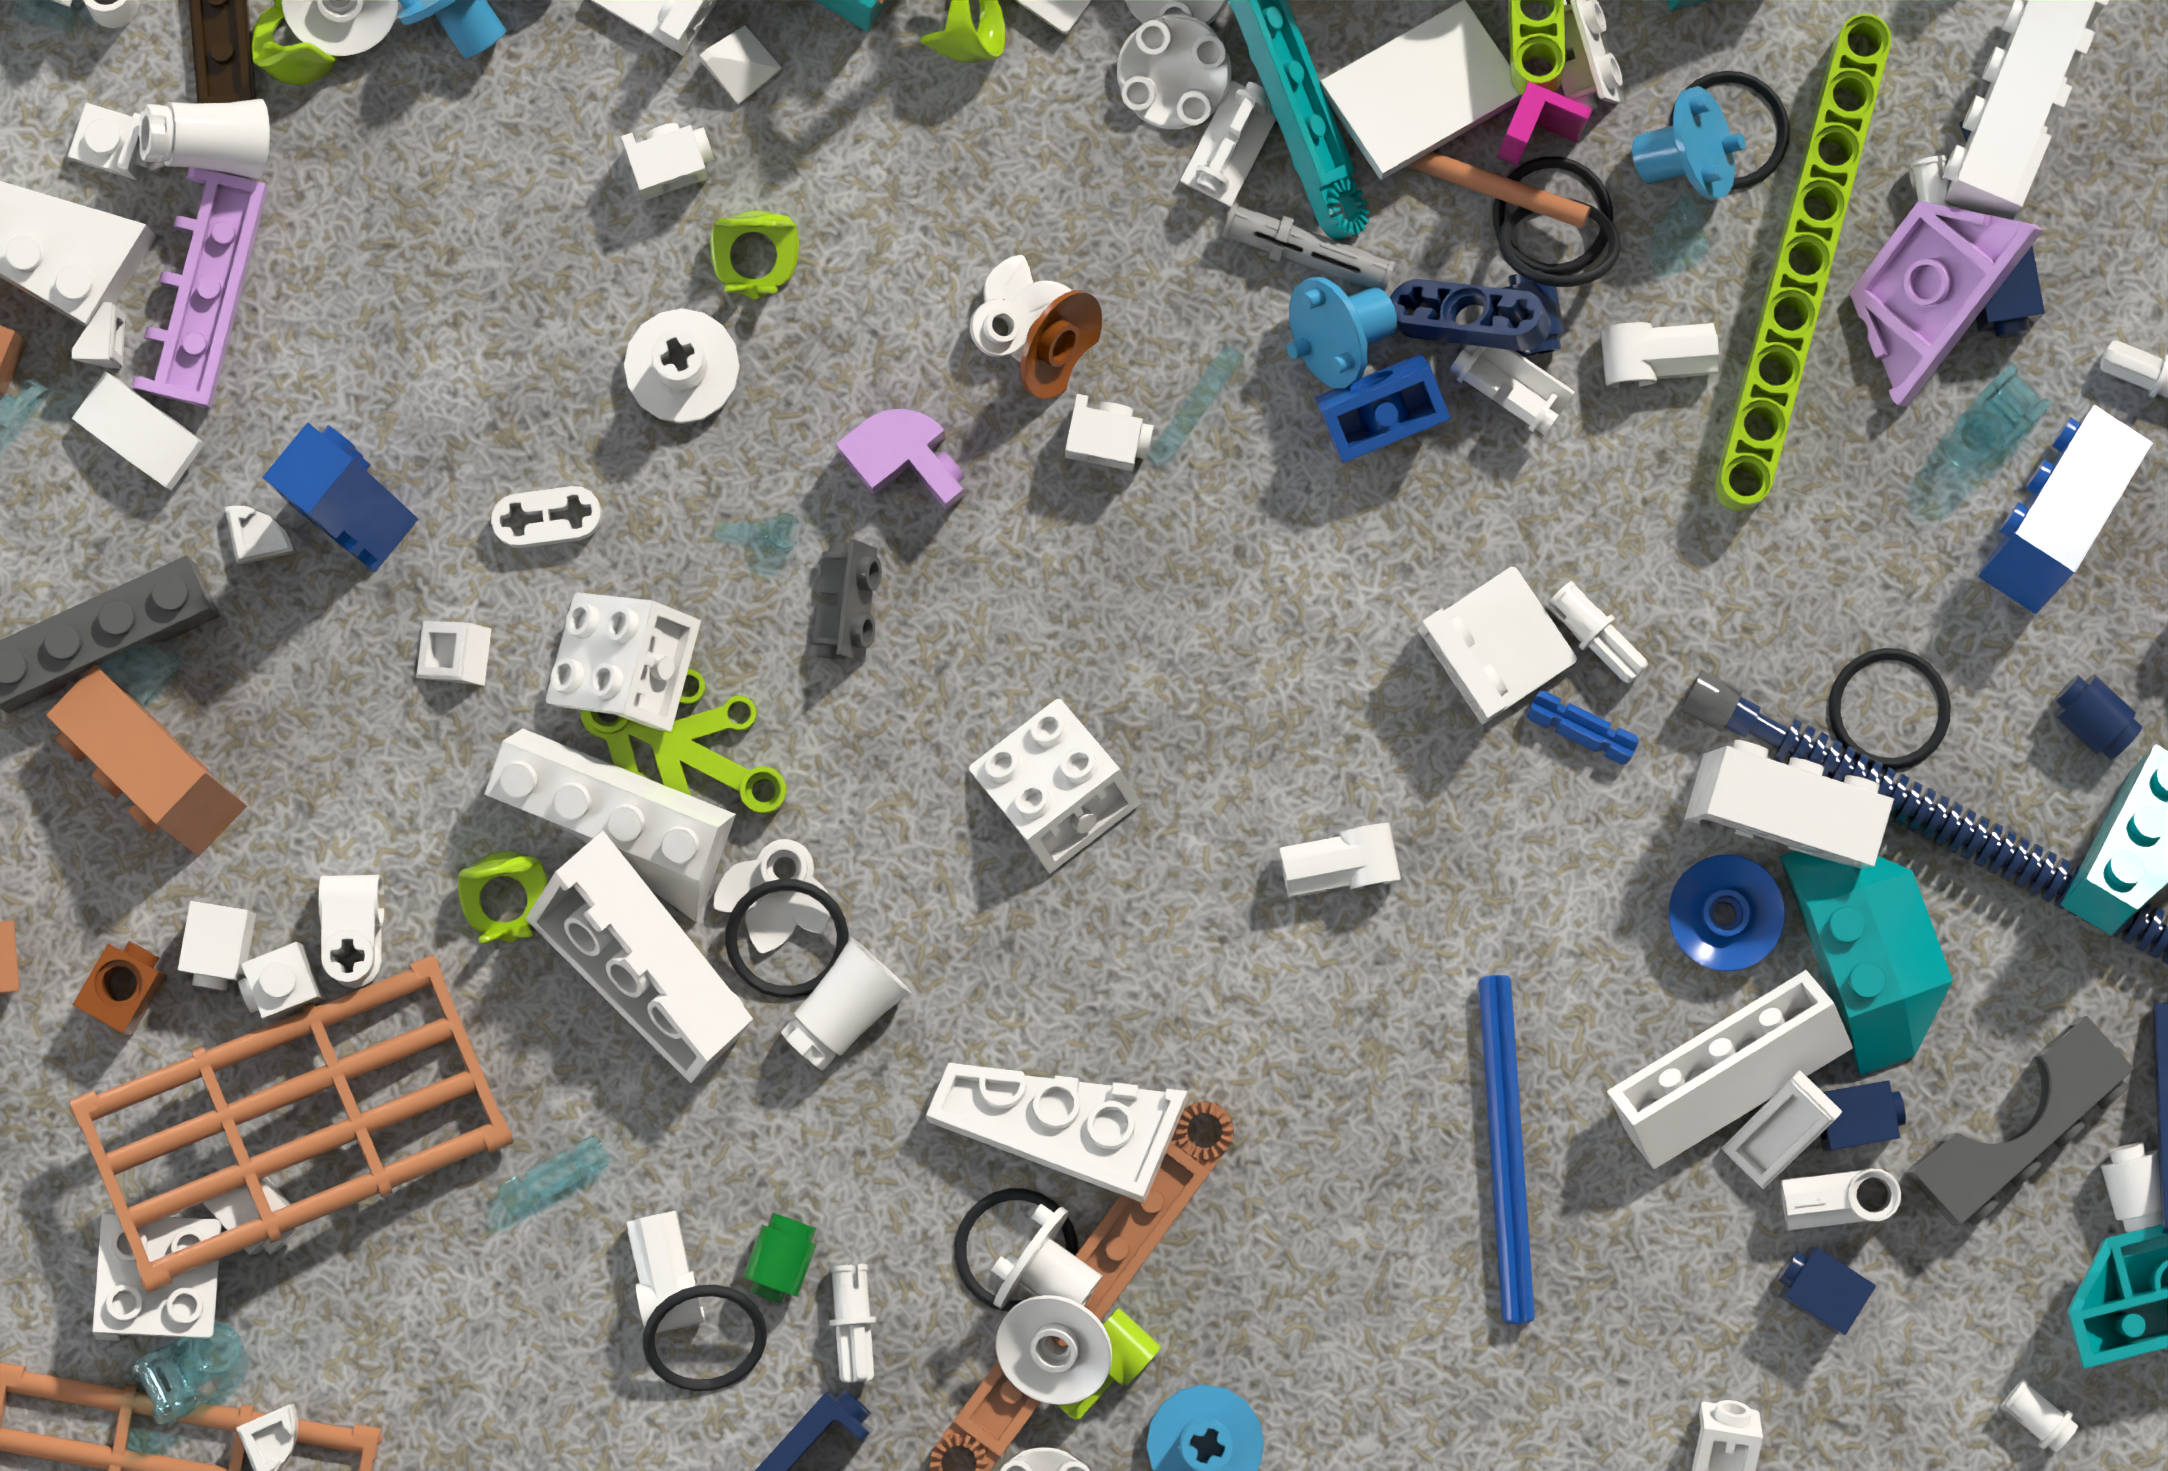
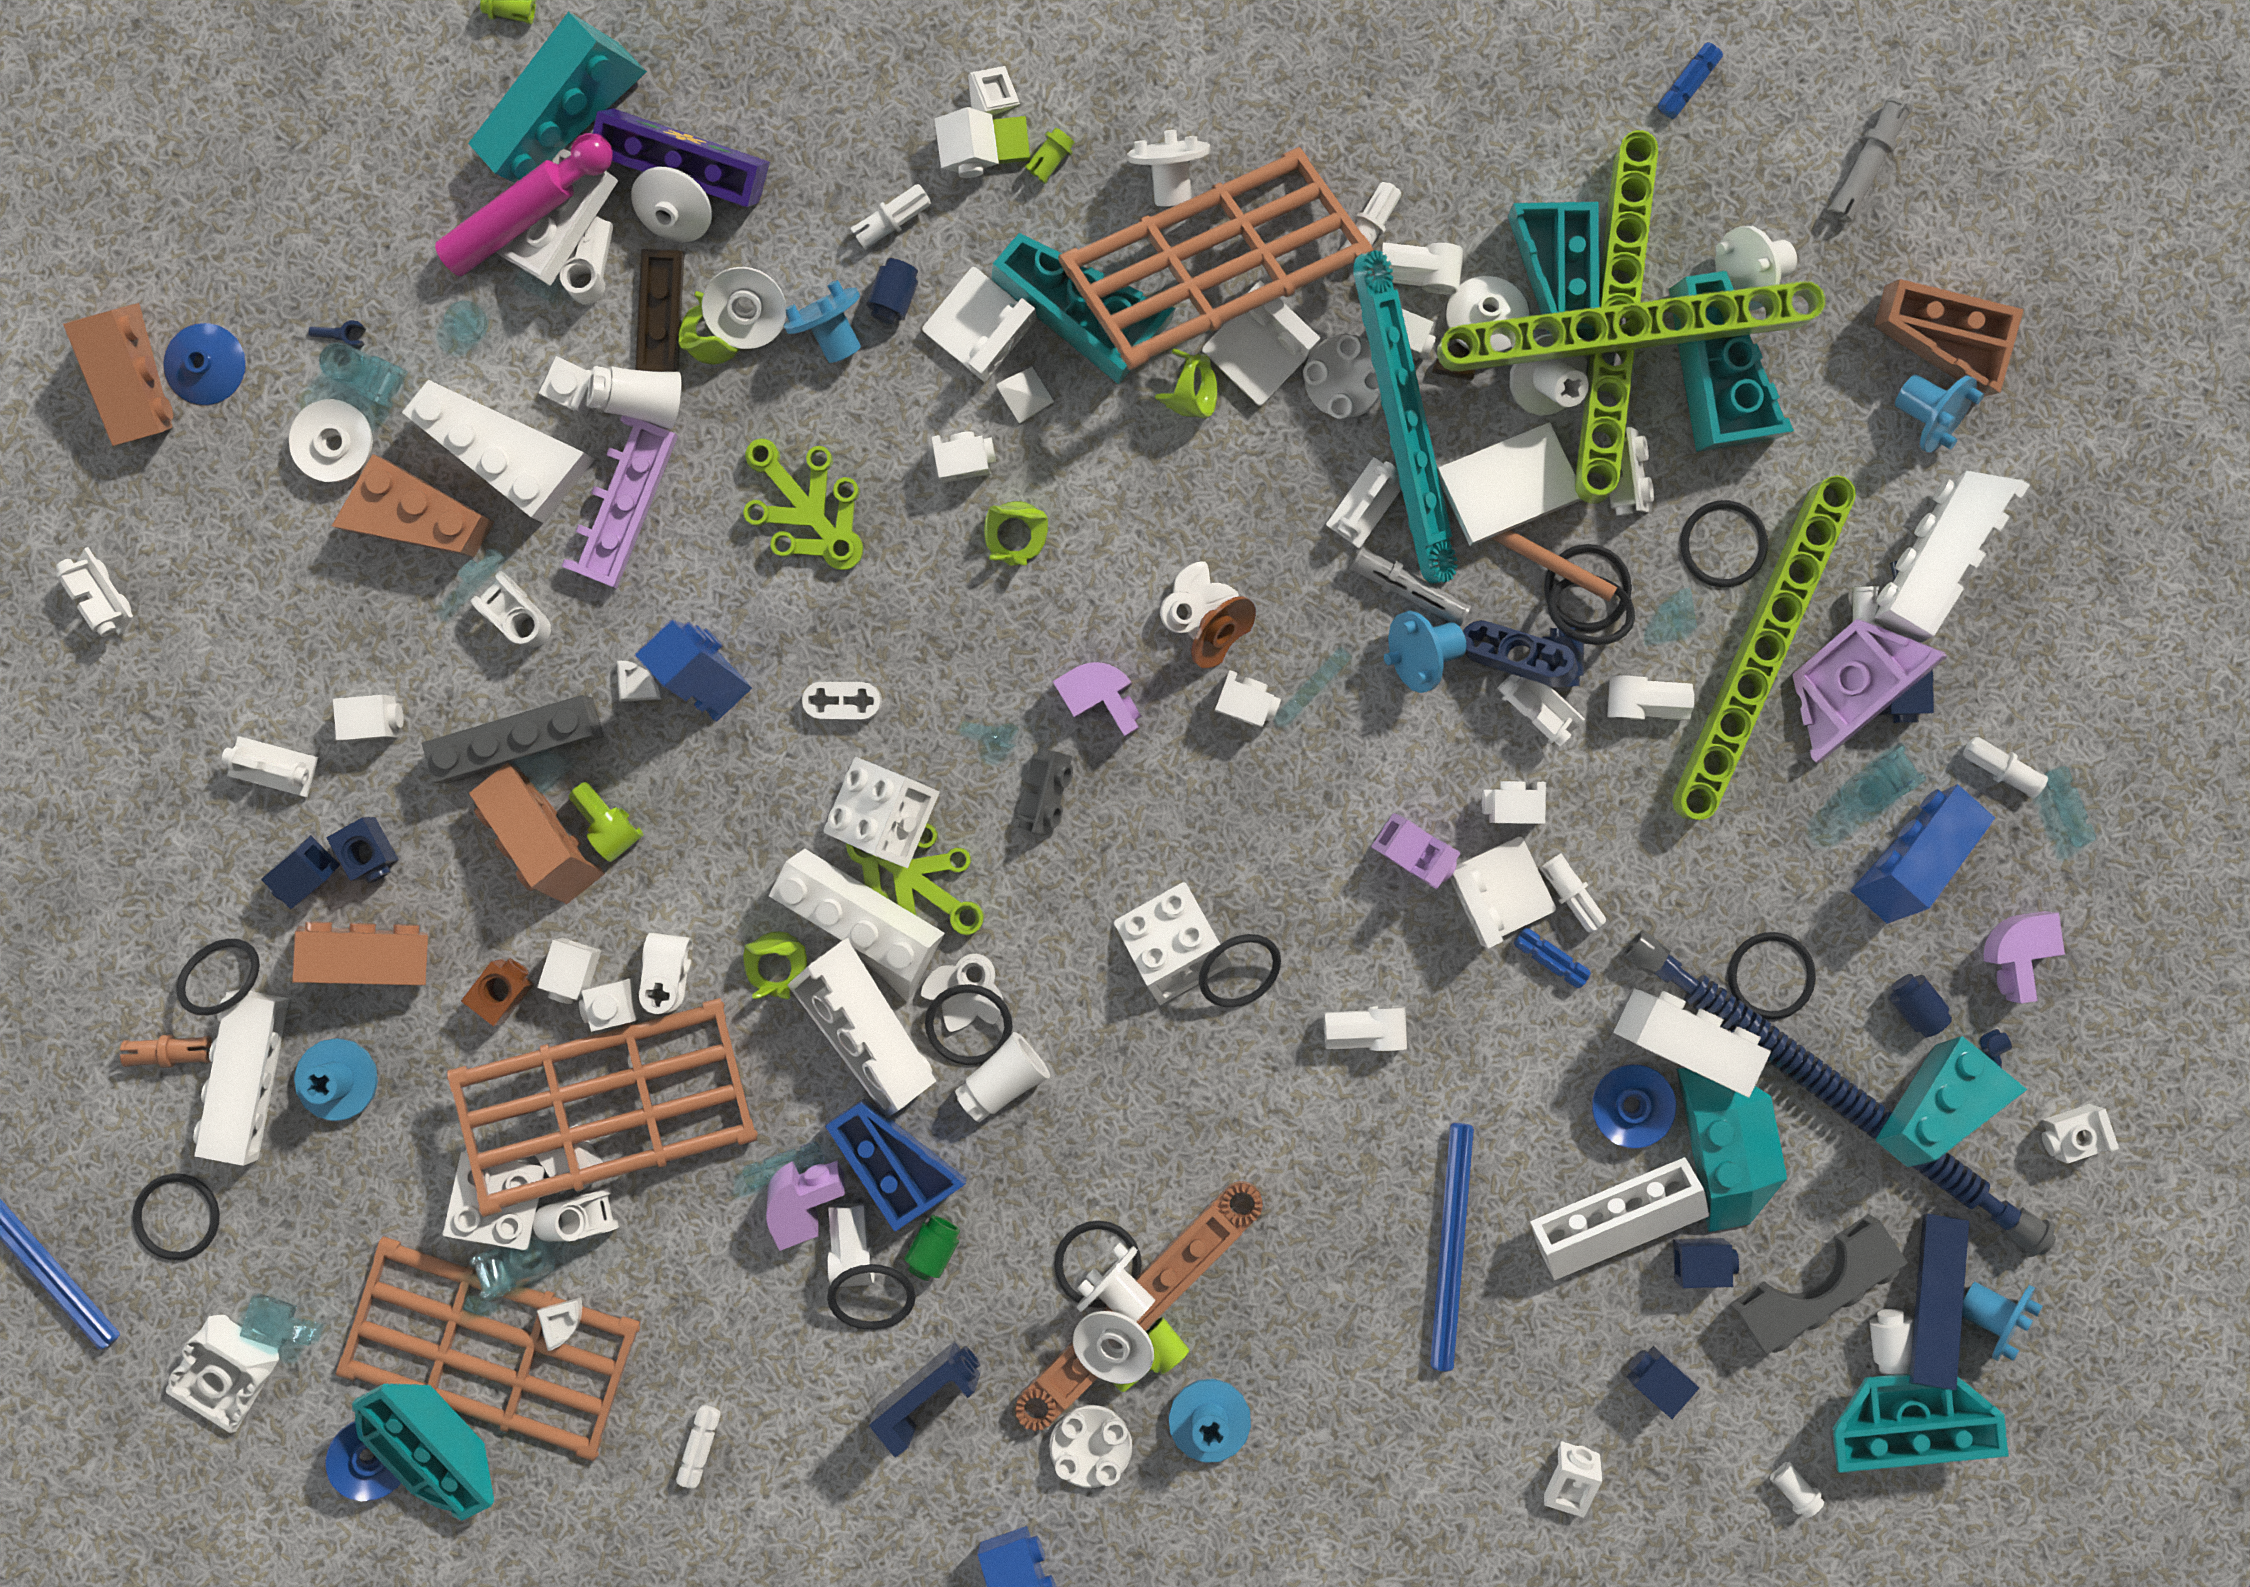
camera: 15 degrees right, 5 degrees up
(65, 456) = (508, 607): none -> white piece
(102, 339) = (545, 528): white slope -> none
(138, 430) = (562, 598): white slope -> none
(245, 739) = (609, 829): none -> lime axle
(272, 1286) = (582, 1216): none -> white piece
(453, 652) = (764, 787): white slope -> none
(463, 262) = (808, 510): none -> lime plant
(572, 1215) = (793, 1200): none -> lavender brick
(681, 366) = (952, 606): white piece -> none
(707, 1144) = (892, 1163): none -> blue wedge
(852, 1322) = (976, 1299): white axle -> none
(1075, 1127) = (1154, 1190): white wing -> none
(1116, 779) = (1250, 938): none -> black tyre
(1174, 71) = (1333, 444): white dish -> none
(1371, 605) = (1416, 851): none -> lavender brick
(1383, 408) = (1446, 711): blue brick -> none
(1497, 521) = (1515, 803): none -> white brick
(1546, 110) = (1588, 512): dark pink panel -> none
(1693, 146) = (1697, 554): dark azure piece -> none
(1781, 1129) = (1649, 1266): white tile -> none
(1833, 1199) = (1677, 1319): white piece -> none

